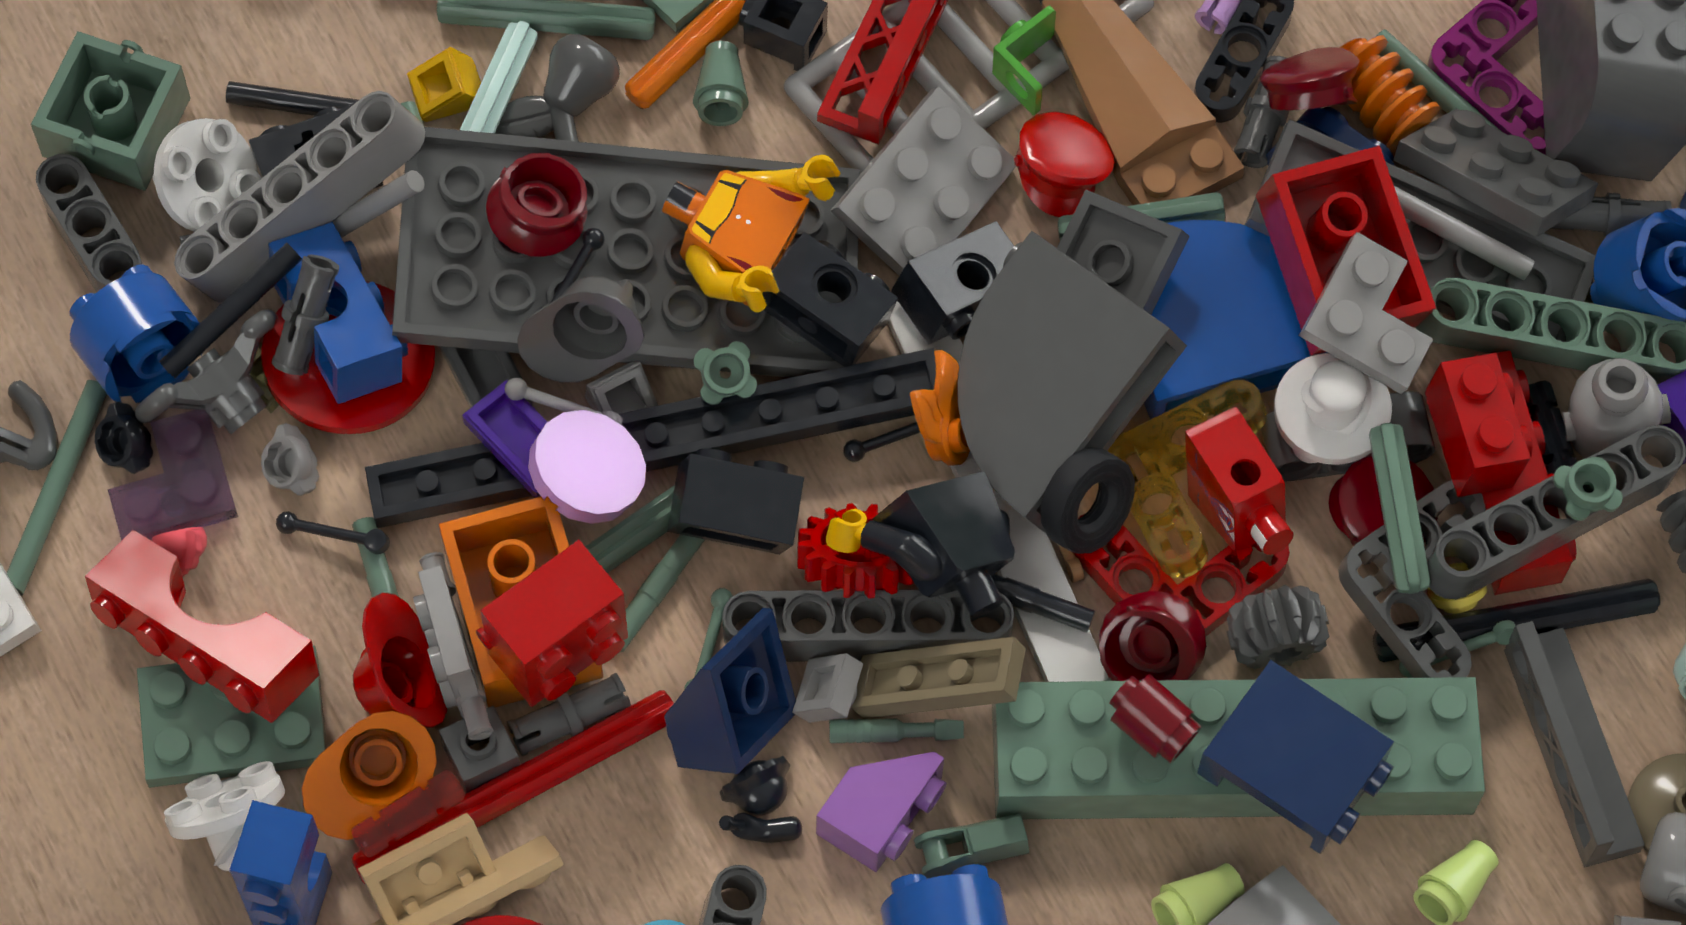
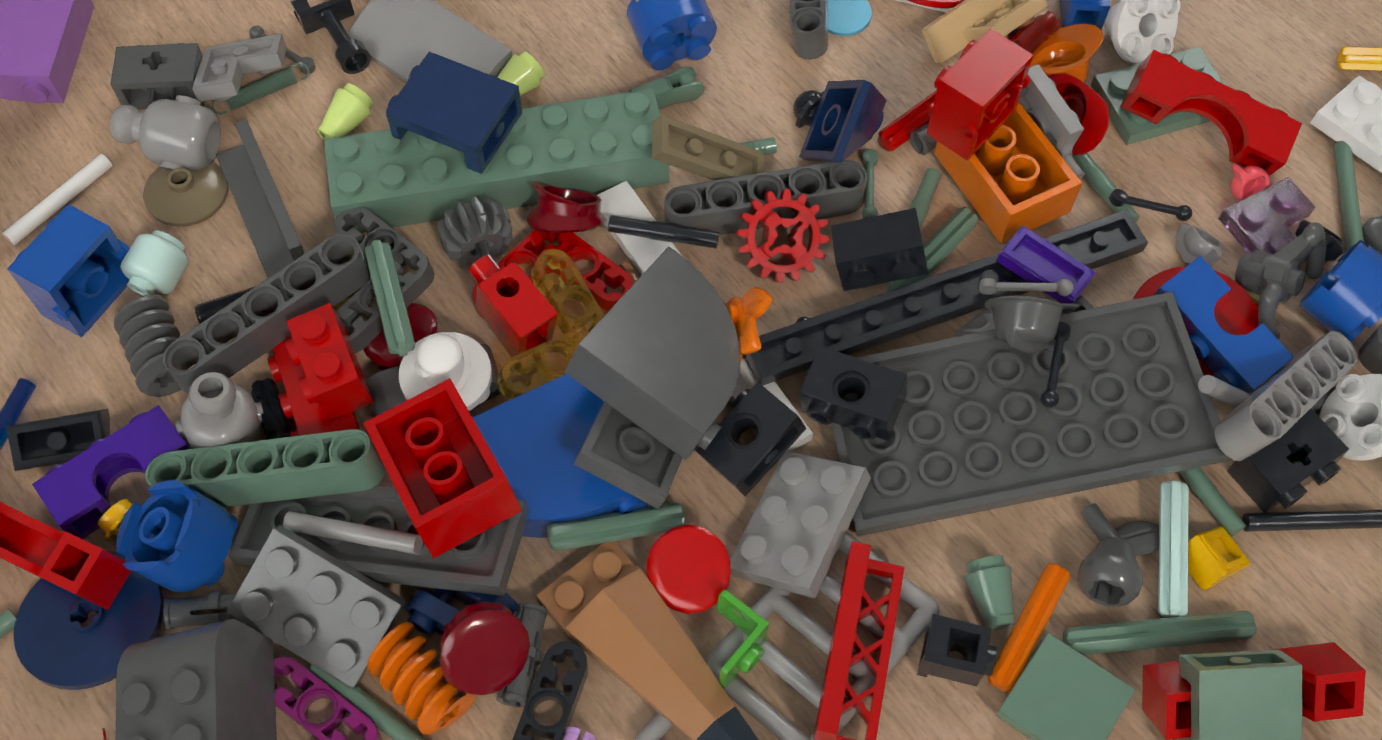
camera: 170 degrees right, 5 degrees down
(230, 310) = (1295, 303): black bar -> none
(303, 313) = (1242, 307): dark grey pin -> none
(538, 205) = (1103, 405): dark red piece -> none
(587, 466) = (993, 237): tile -> none
(736, 360) = (915, 327): sand green plate -> none
(746, 226) = (934, 421): torso -> none
(761, 830) = (800, 85): black piece -> none
(828, 688) = (780, 152): light grey plate -> none
(877, 803) = (731, 96): medium lavender slope -> none
(940, 534) = (724, 219): black torso -> none
(1069, 487) = (624, 271): black tyre -> none
(1154, 717) = (555, 122): dark red brick -> none
(1351, 318) = (428, 391): light grey plate -> none
(1599, 476) = (236, 293): sand green plate -> none

